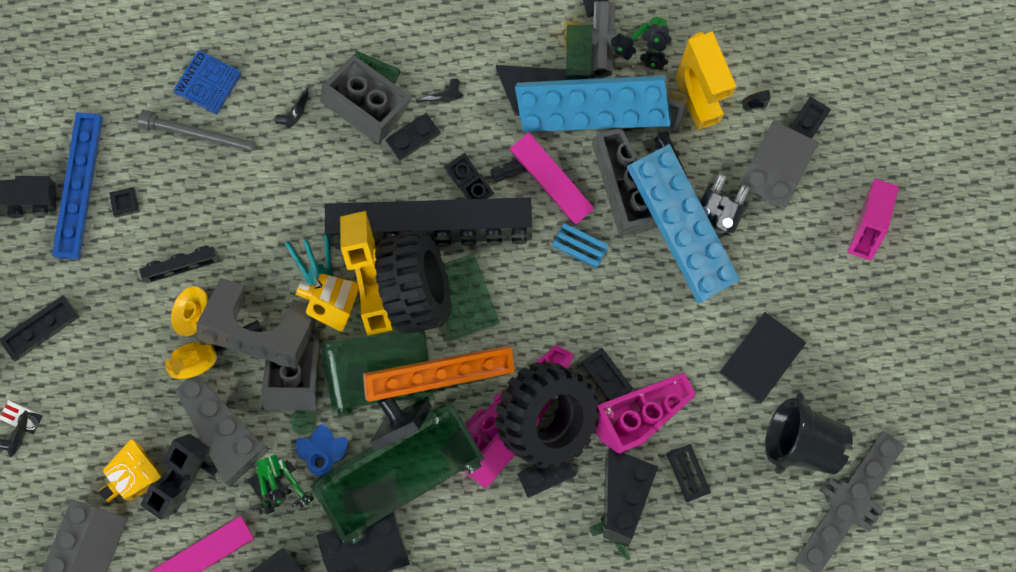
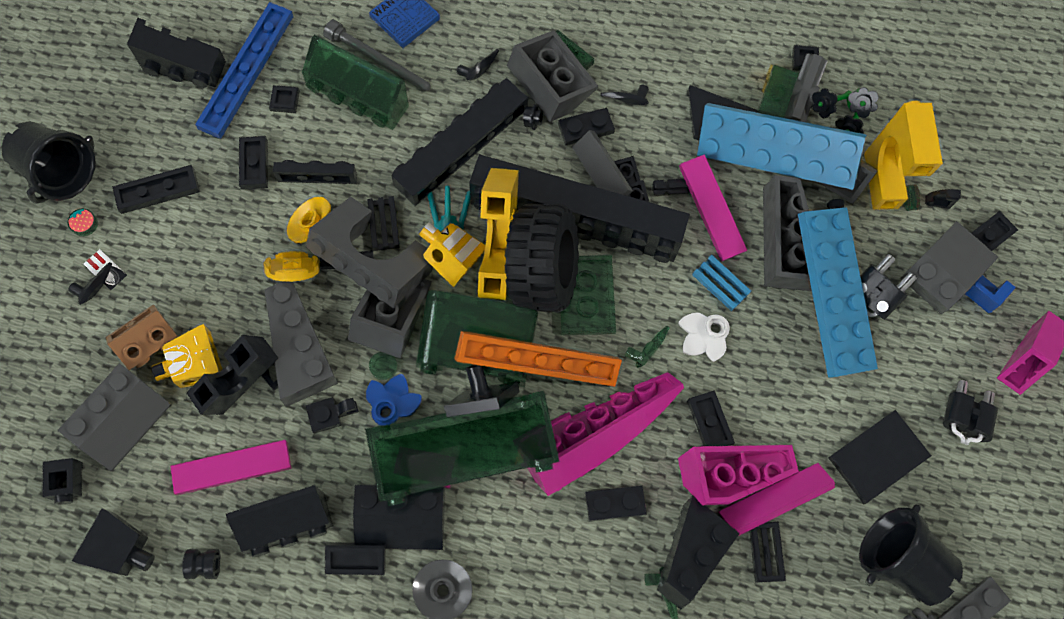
camera: 10 degrees right, 5 degrees down
(80, 469) = (141, 337): none -> medium nougat brick
(118, 273) = (253, 162): none -> black plate
(185, 169) = (354, 83): none -> clear green slope
(249, 272) = (381, 202): none -> black tile
(269, 469) = (331, 400): plant -> none
(302, 190) = (459, 141): none -> black brick
(360, 144) = (532, 116): none -> black plate
(438, 173) = (600, 164): none -> dark grey tile
(525, 400) = (660, 458): black tyre -> none
(534, 329) = (649, 350): none -> clear green bar
(578, 303) = (702, 338): none -> white plate
(684, 425) = (778, 499): none -> dark pink tile
(728, 109) = (913, 201): none -> clear green tile
(819, 177) = (988, 295): none -> blue panel
(831, 296) = (969, 416): none -> black piece

